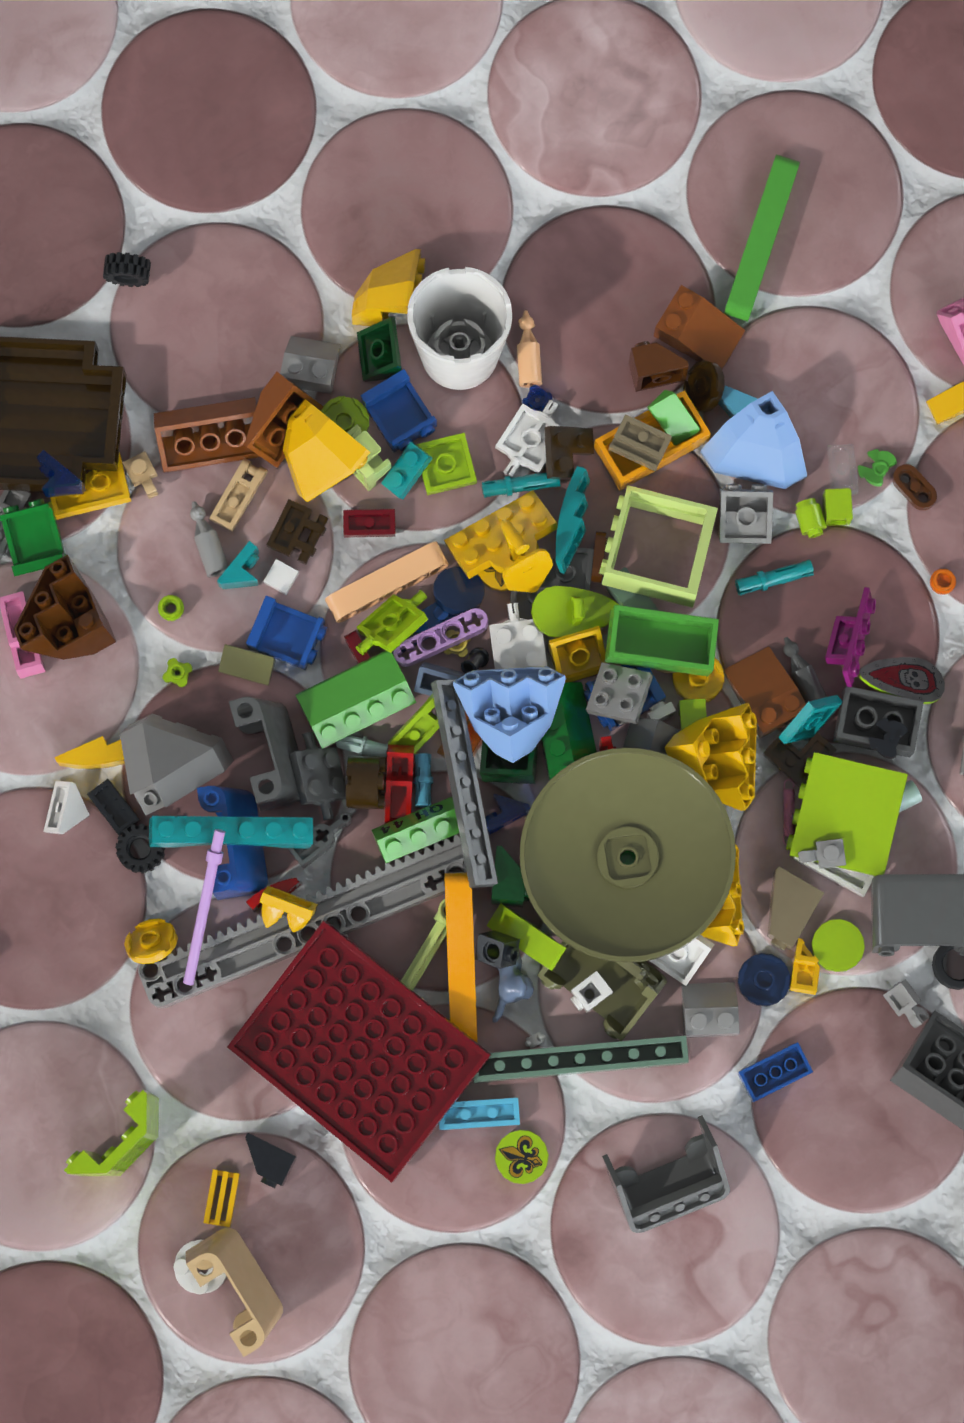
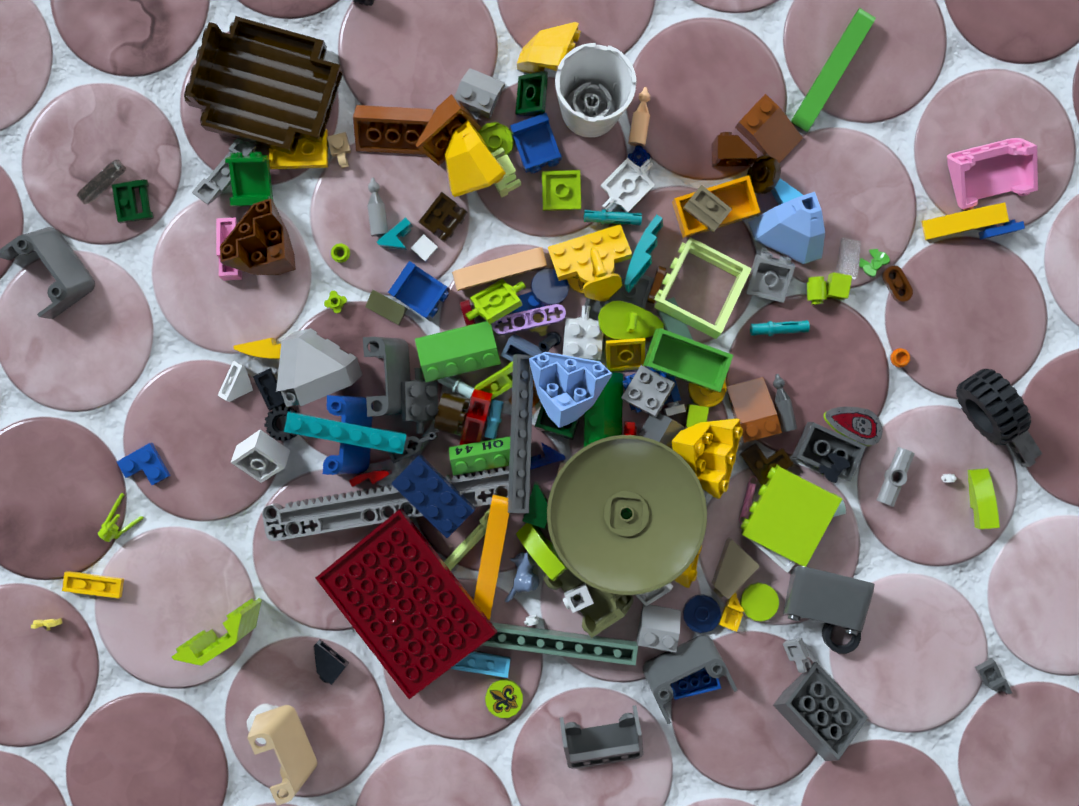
camera: 10 degrees right, 10 degrees up
(61, 480) = (274, 142): clear blue slope -> none
(120, 896) = (260, 456): none -> white slope
(151, 941) = (276, 492): yellow tile -> none
(213, 857) = (327, 452): lavender bar -> none
(217, 1221) = (278, 692): yellow tile -> none
(238, 495) = (405, 180): tan plate -> none
(277, 902) = (370, 487): yellow tile -> none
(365, 893) = (433, 496): none -> dark blue piece
(369, 523) = (496, 222): dark red plate -> none
(406, 470) = (532, 189): teal plate -> none
(497, 949) = (518, 556): black brick -> none
(560, 447) = (648, 196): dark brown plate -> none
(673, 417) = (736, 194): slope -> none
(725, 1068) = (673, 666): none -> dark grey windscreen
(810, 719) = (781, 440): teal plate -> none
(827, 853) = (769, 542): light grey plate -> none
(848, 638) = (822, 385): magenta bracket -> none

